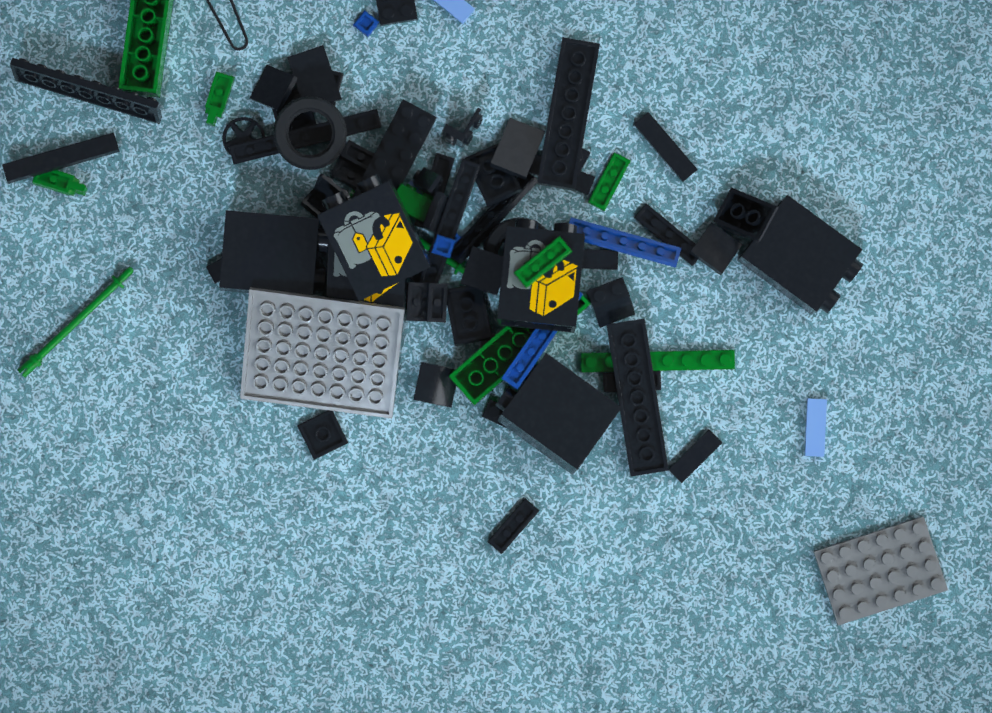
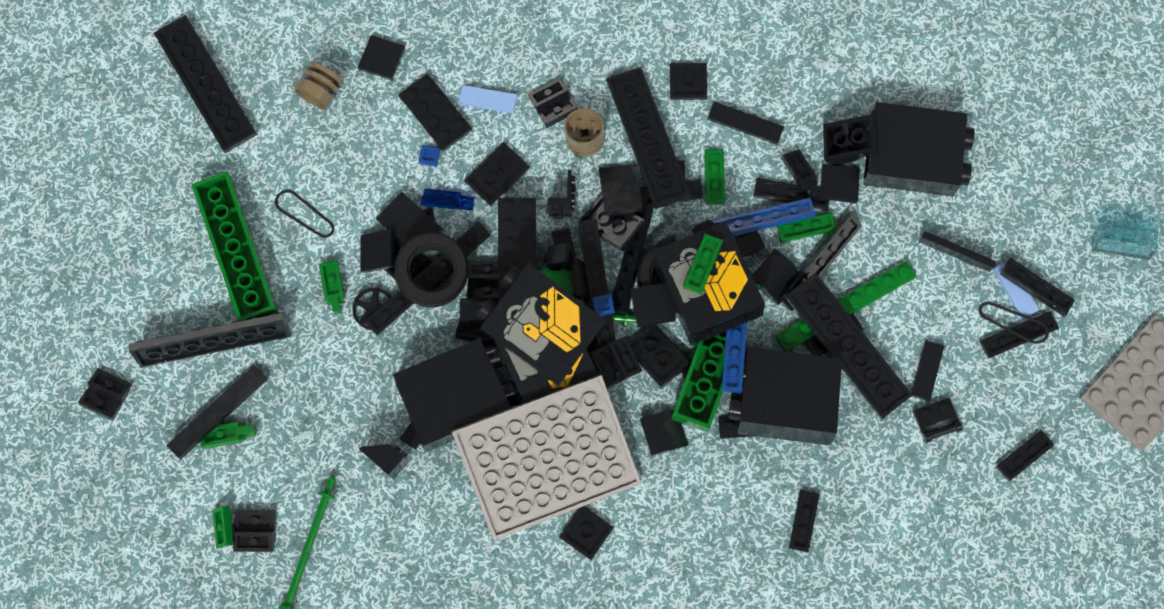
camera: 25 degrees left, 10 degrees down
(16, 261) = (222, 527): none -> green plate
(42, 278) = (254, 530): none -> black slope
(185, 280) = (388, 458): none -> black slope
(359, 73) = (446, 199): none -> clear blue hinge
(417, 73) = (497, 174): none -> black tile
(503, 34) = (552, 102): none -> black slope
(522, 72) = (584, 122): none -> dark tan wheel
(636, 79) = (688, 81): none -> black tile
(665, 305) = (824, 254): none -> black tile
(676, 276) = (806, 228): none -> green tile
(681, 497) = (935, 414): none -> black plate
(687, 219) = (801, 172): none -> black hinge
(735, 574) = (1025, 455): none -> black tile
(783, 366) = (957, 251): none -> black tile
(789, 464) = (1016, 313): none -> black piece
(794, 468) = (1006, 340): none -> black tile
(834, 435) = (1037, 287): none -> black tile
(939, 437) = (1128, 239): none -> clear light blue wedge

